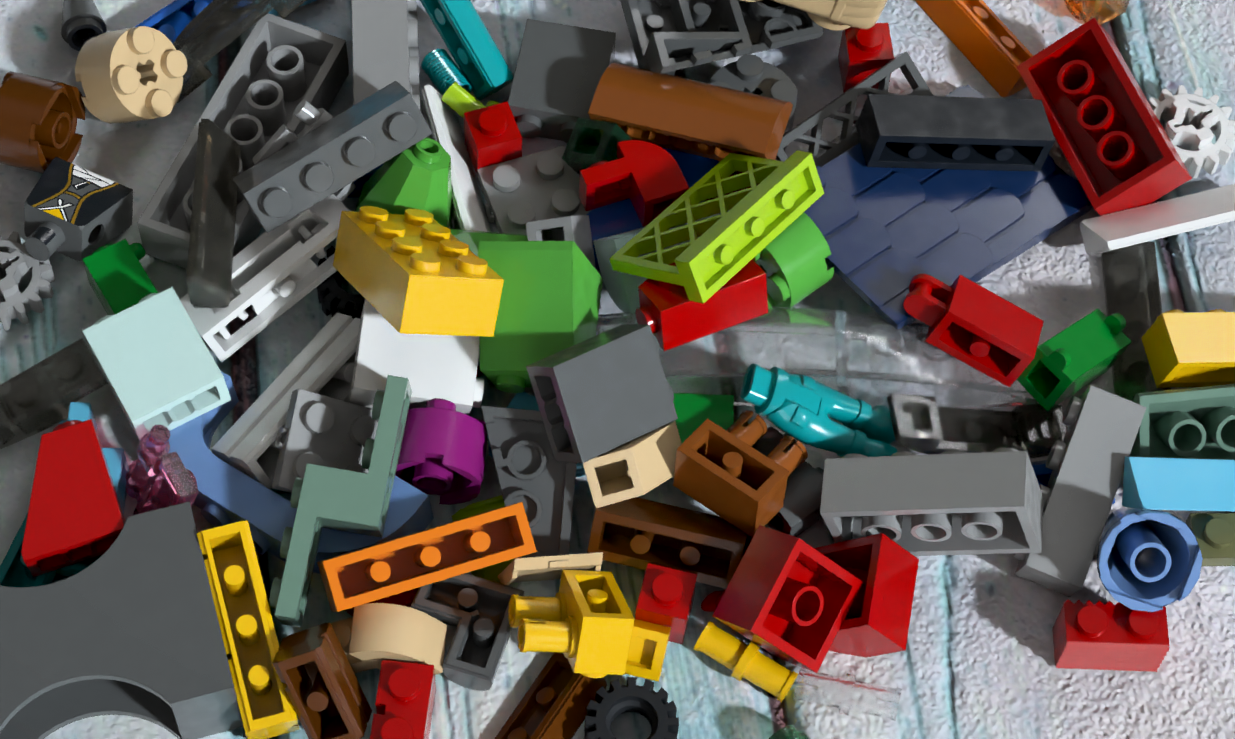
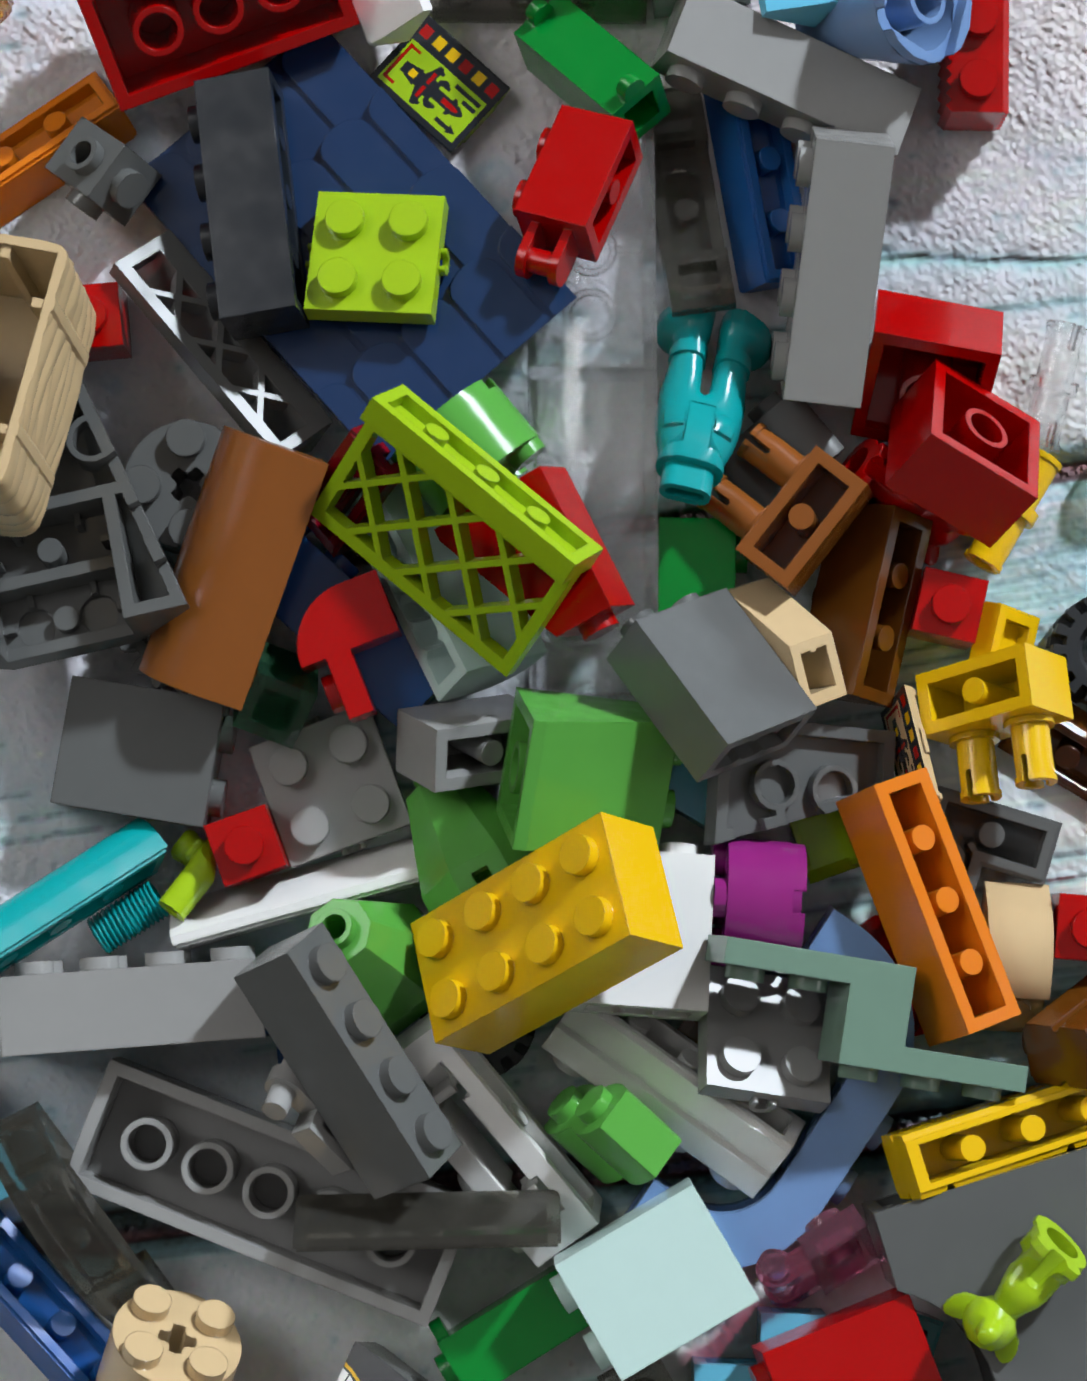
camera: 85 degrees left, 25 degrees up
(141, 607) = (1045, 1263): none -> lime animal
(269, 344) = (611, 1133): none -> bright green brick
(919, 202) = (376, 258): none -> lime plate
(972, 60) = (102, 173): none -> dark grey brick
(1055, 278) = (440, 84): none -> piece

